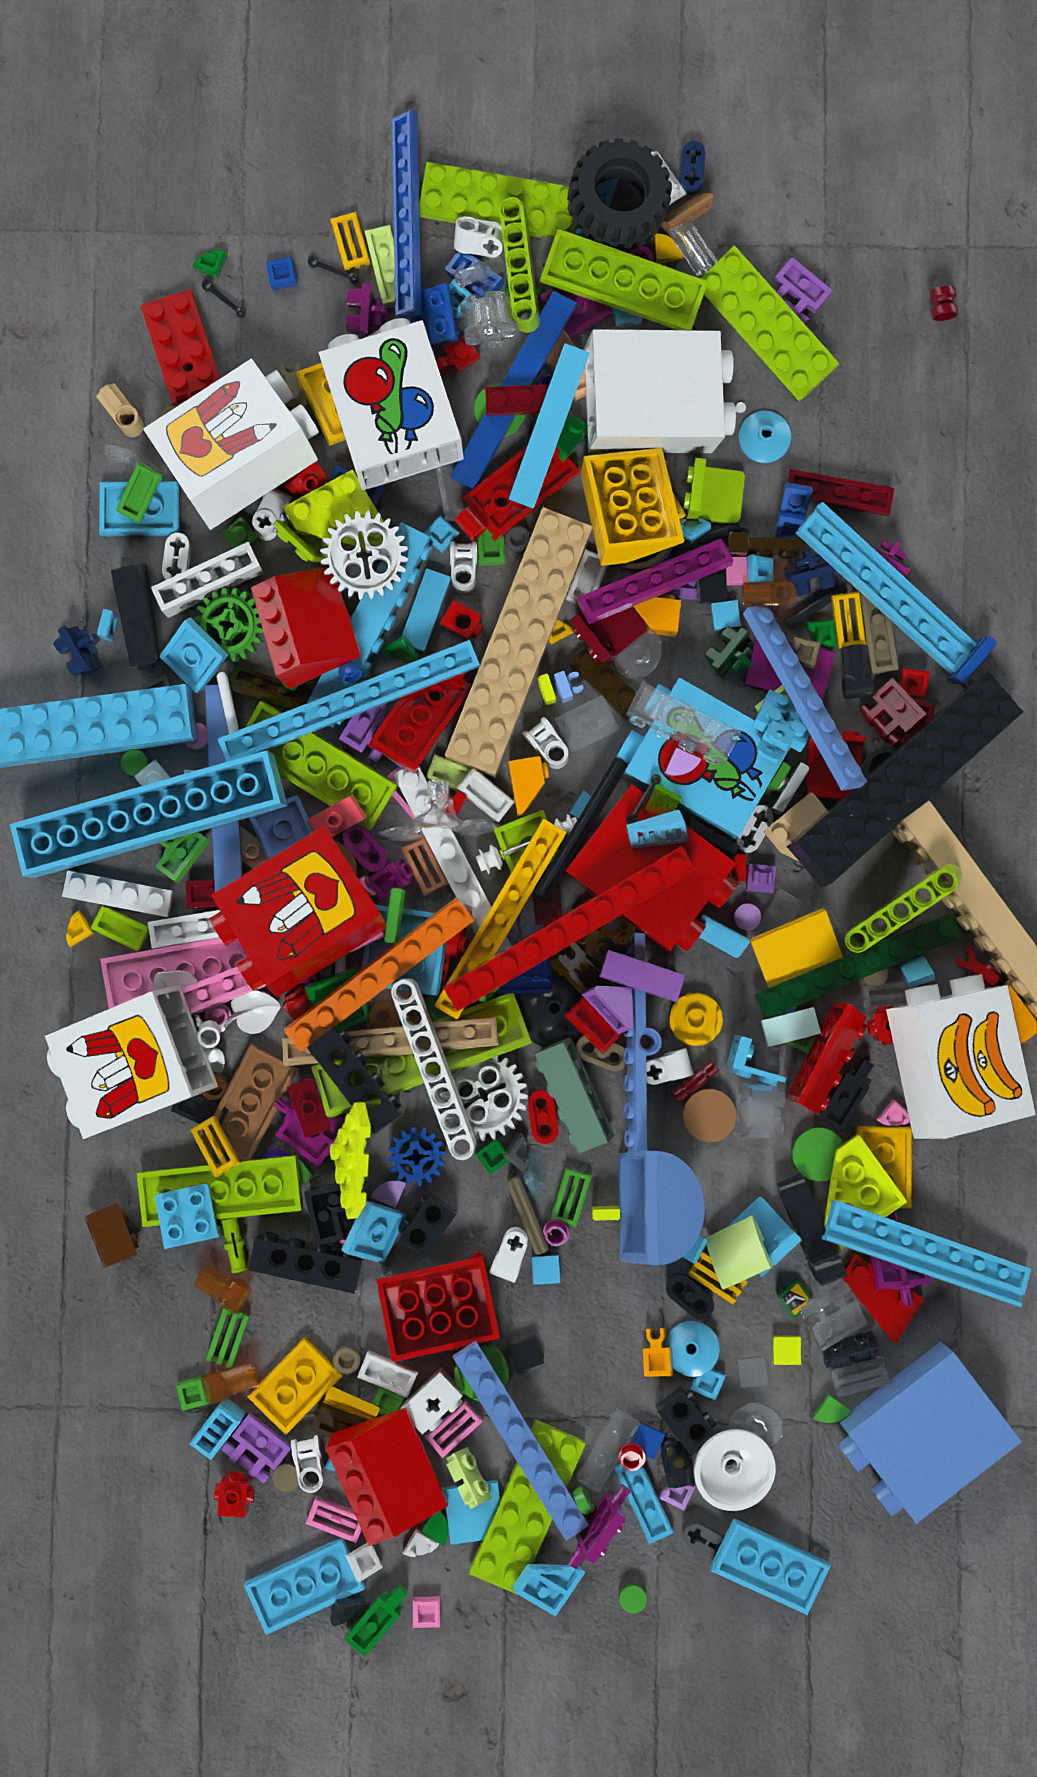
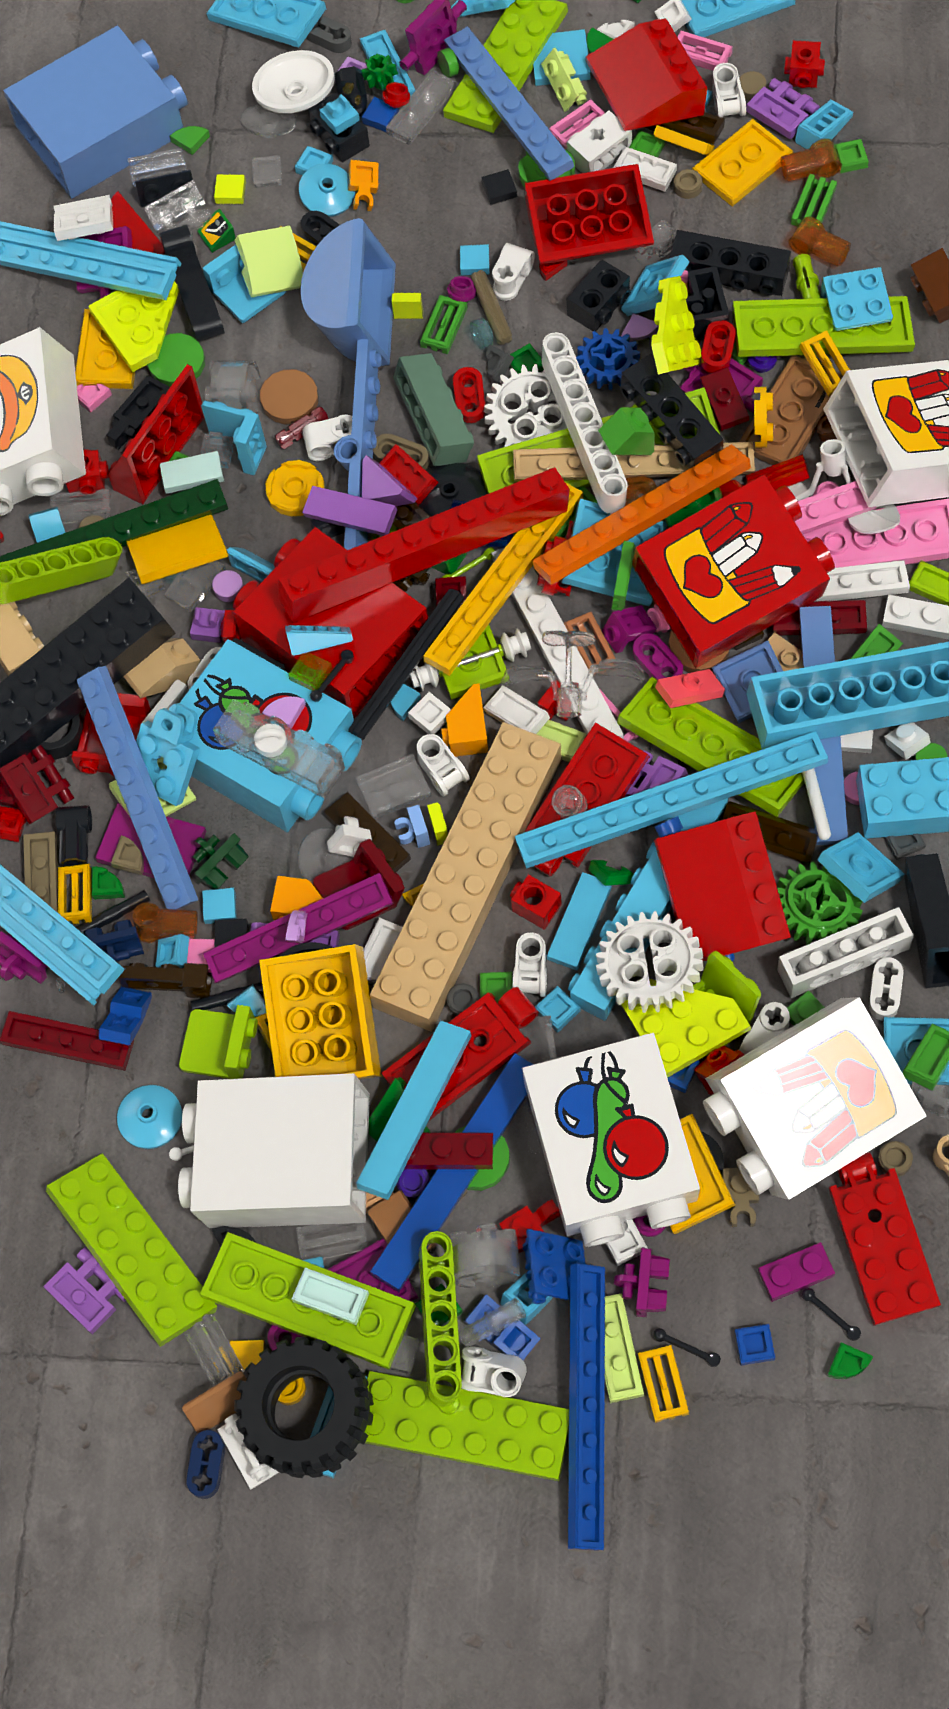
camera: 170 degrees left, 20 degrees down
(250, 329) = (796, 1272): none -> magenta plate
(260, 1034) = (783, 473): none -> red tile
(272, 1081) = (760, 416): none -> yellow plate
(314, 1161) = (716, 352): none -> red plate
(393, 1045) = (628, 433): none -> bright green slope
(437, 693) = (565, 797): none -> clear wheel
(558, 788) = (429, 714): none -> white tile
(605, 278) = (330, 1296): none -> light aqua tile
(620, 669) = (348, 837): none -> white tile
(650, 1490) = (379, 71): none -> green gear
(655, 572) = (296, 927): none -> lavender tile
(685, 1424) = (339, 114): none -> medium azure tile
(689, 718) = (270, 740): none -> white tile
(922, 1291) = (83, 218): none -> white plate

